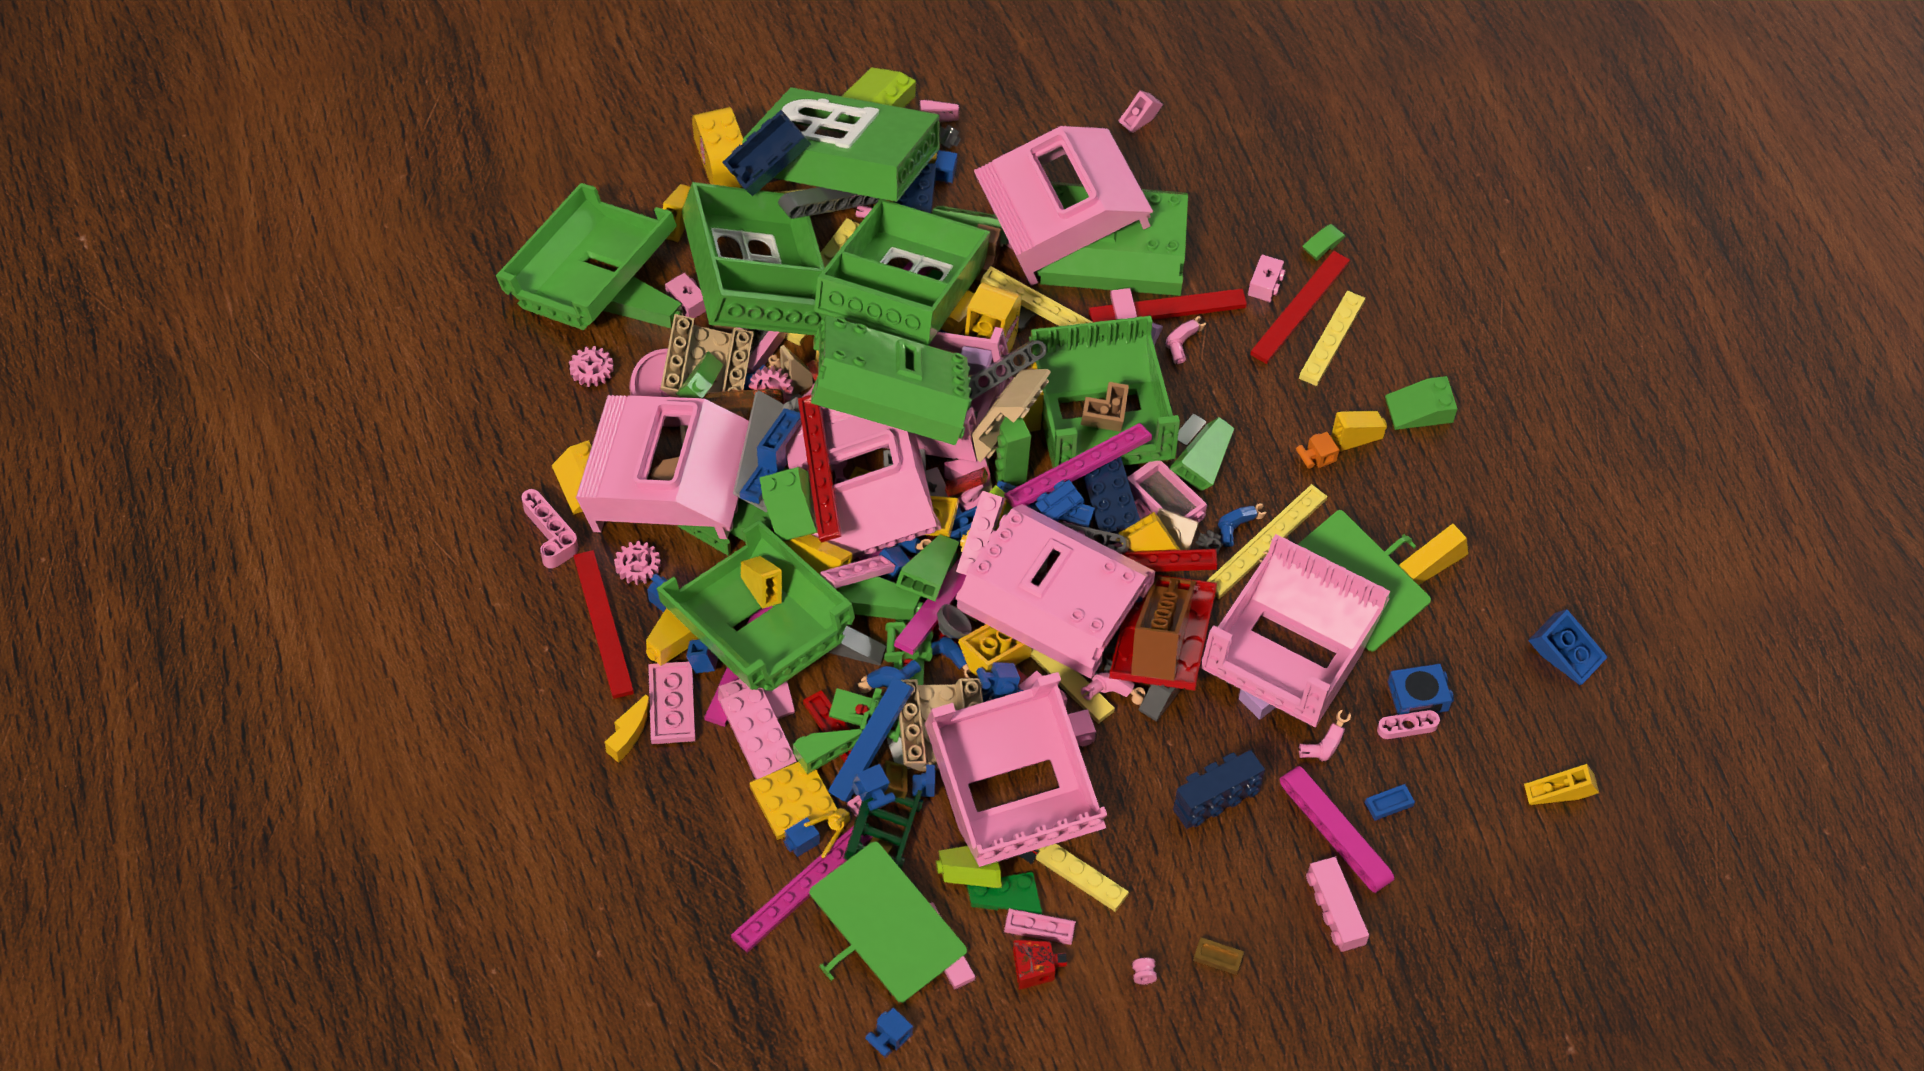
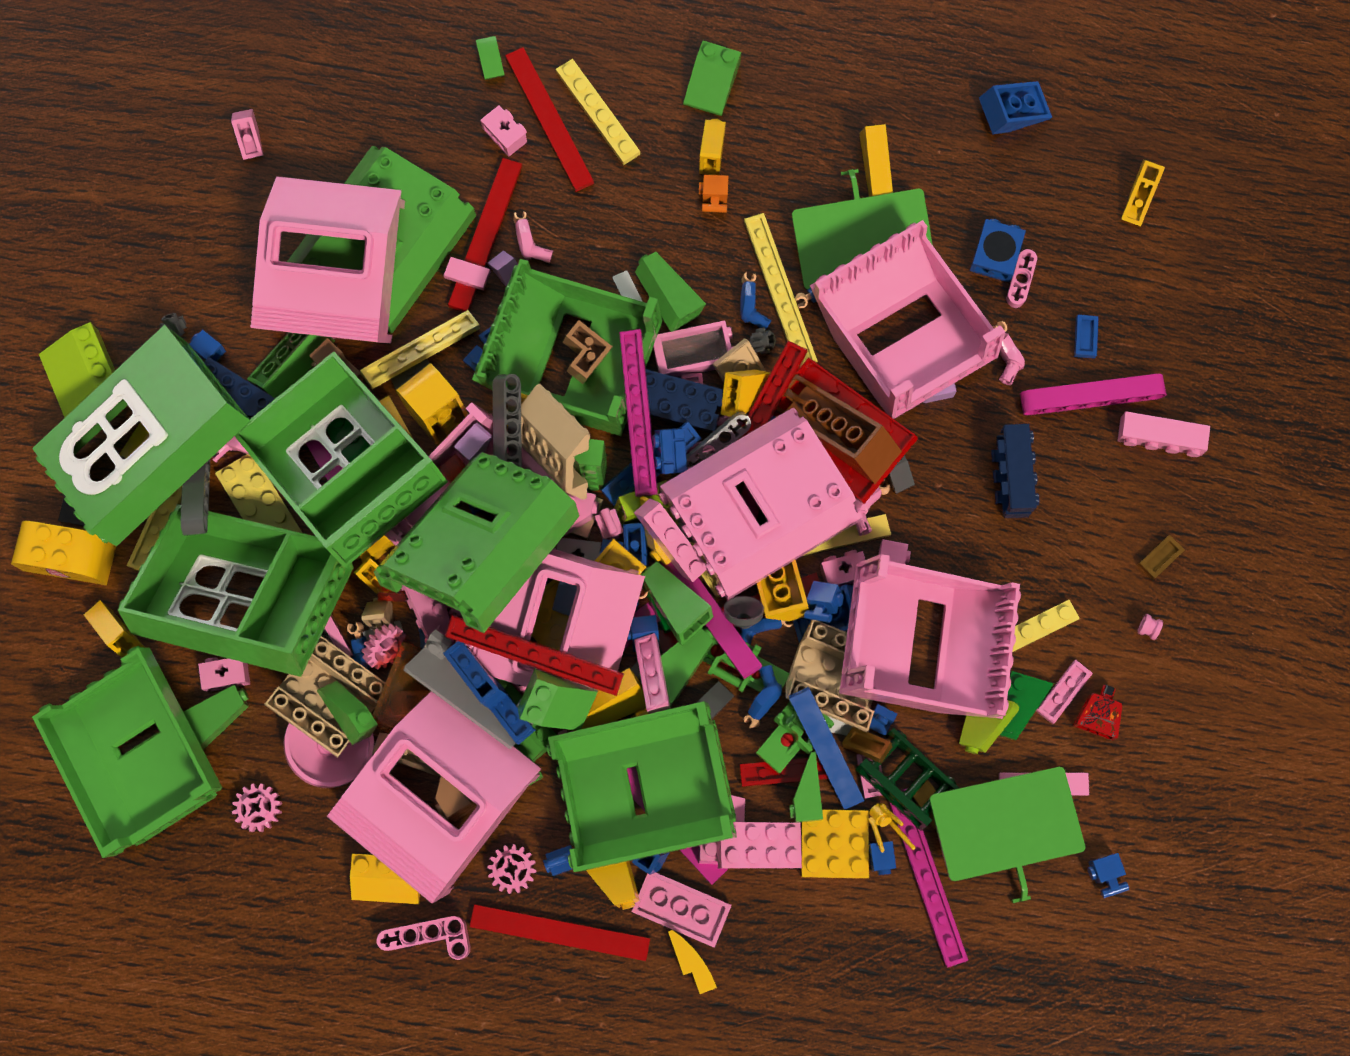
camera: 60 degrees left, 20 degrees up
(762, 580) = (610, 765): yellow slope -> none
(766, 152) = (128, 518): dark blue piece -> none
(873, 784) = (877, 772): blue brick -> none
(940, 108) = (134, 322): bright pink slope -> none
(966, 482) = (596, 521): clear red tile -> none

